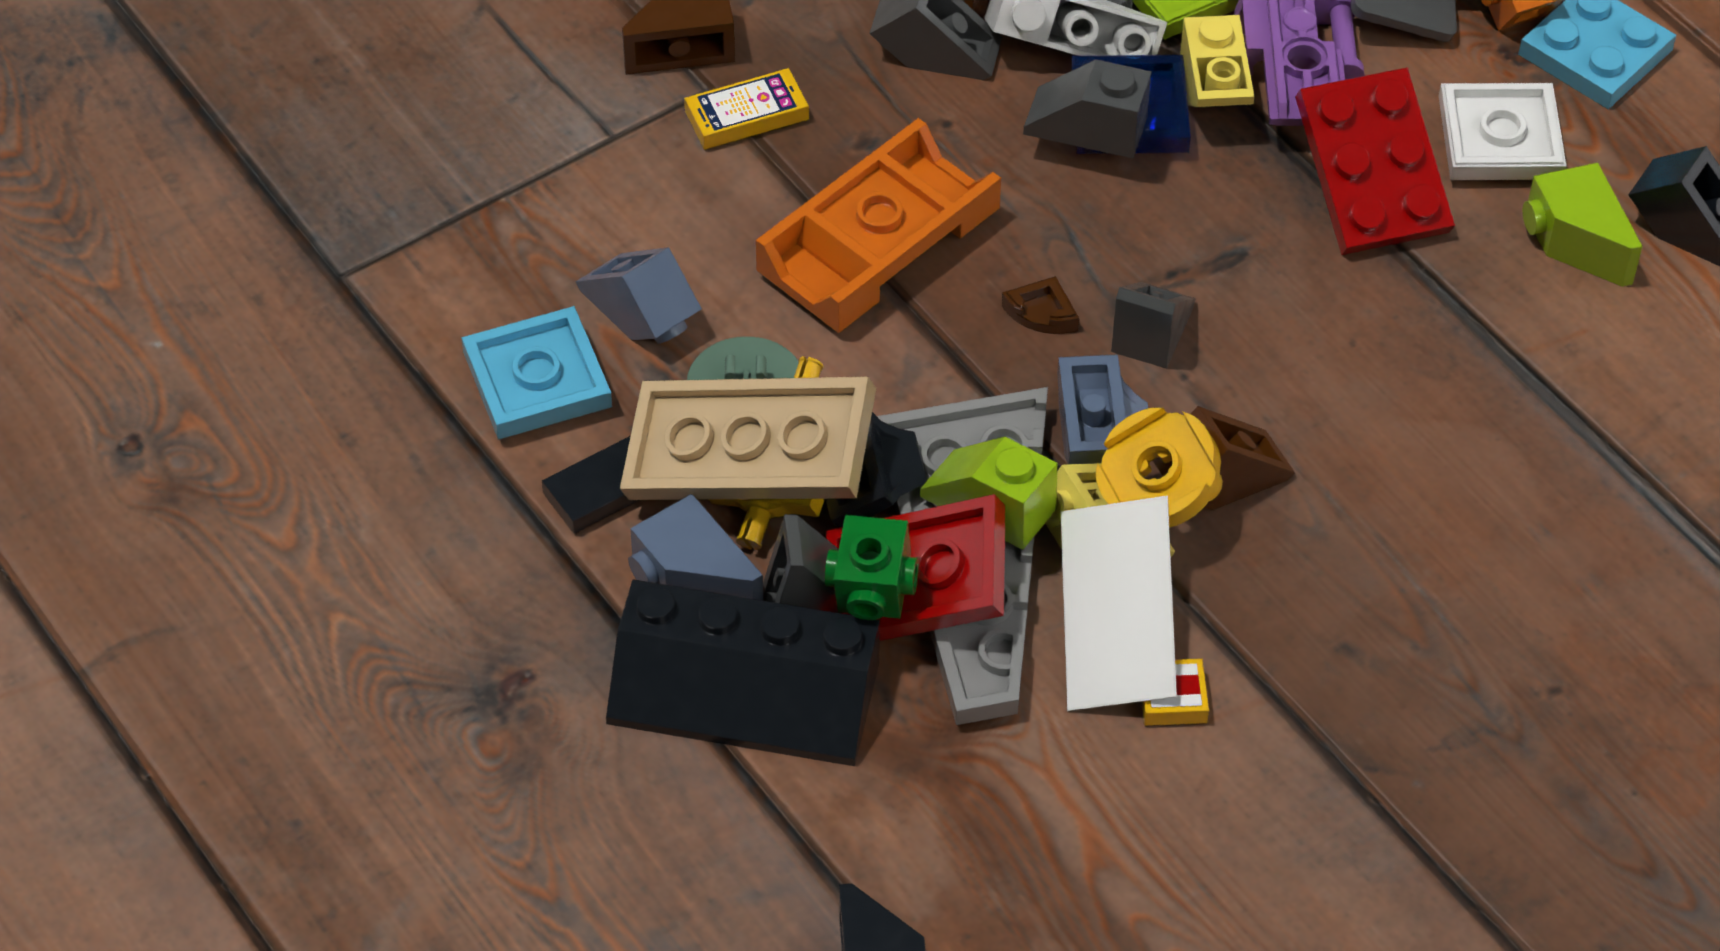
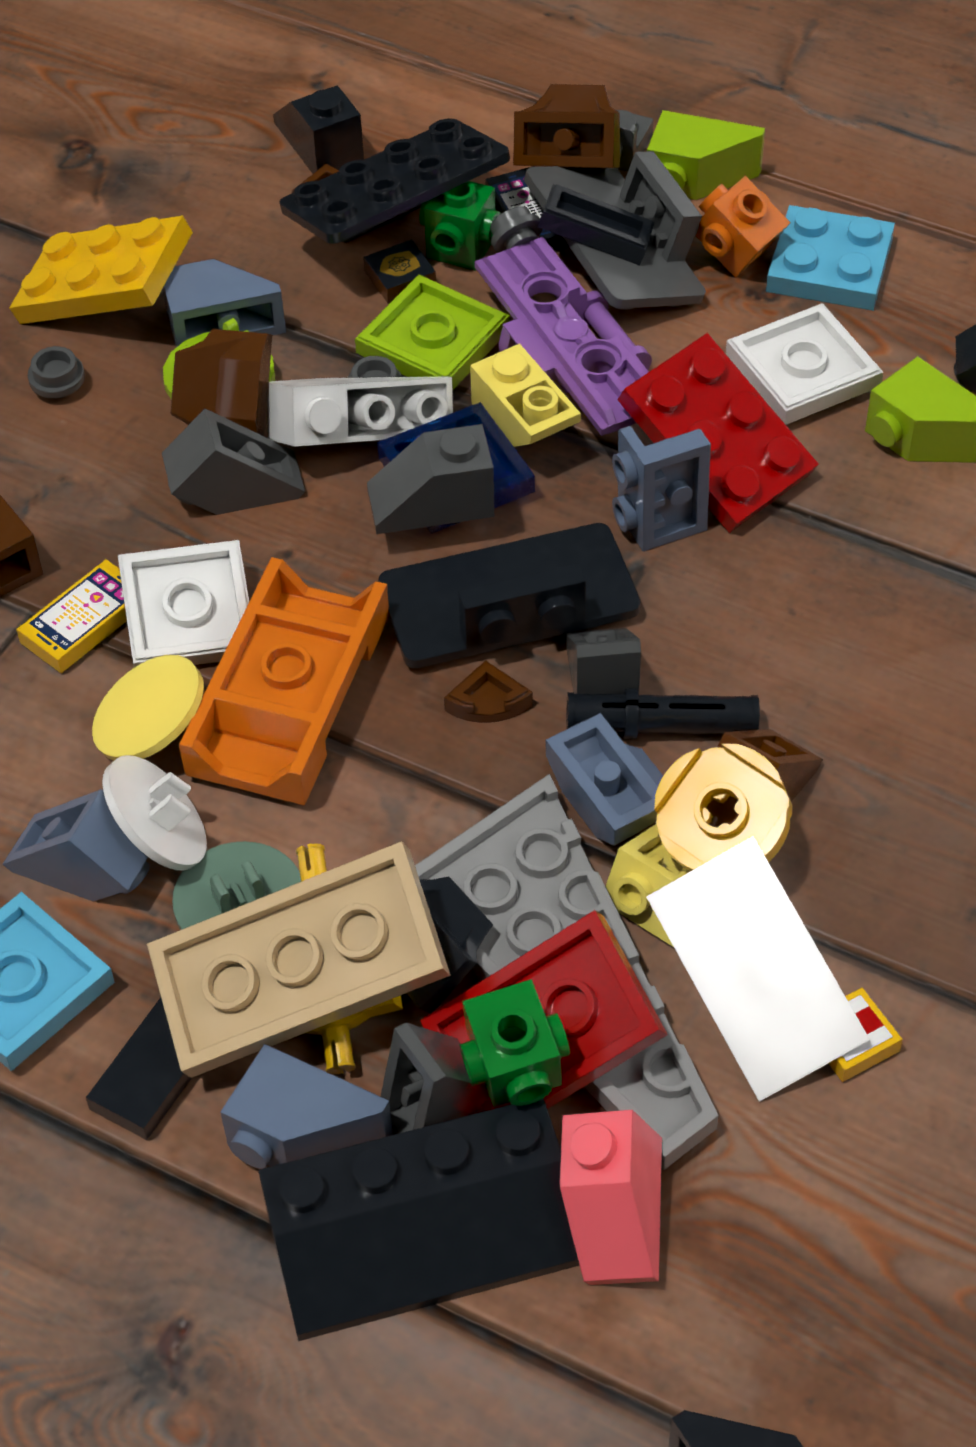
camera: 25 degrees left, 0 degrees up
(708, 286) = (155, 812): none -> white piece
(751, 203) = (148, 707): none -> light yellow piece
(828, 127) = (183, 600): none -> white plate
(896, 715) = (612, 1195): none -> coral slope
(1003, 468) = (564, 888): lime slope -> none
(1110, 230) = (509, 595): none -> black bracket
(1187, 383) = (680, 714): none -> black pin
(1290, 189) = (662, 487): none -> sand blue bracket

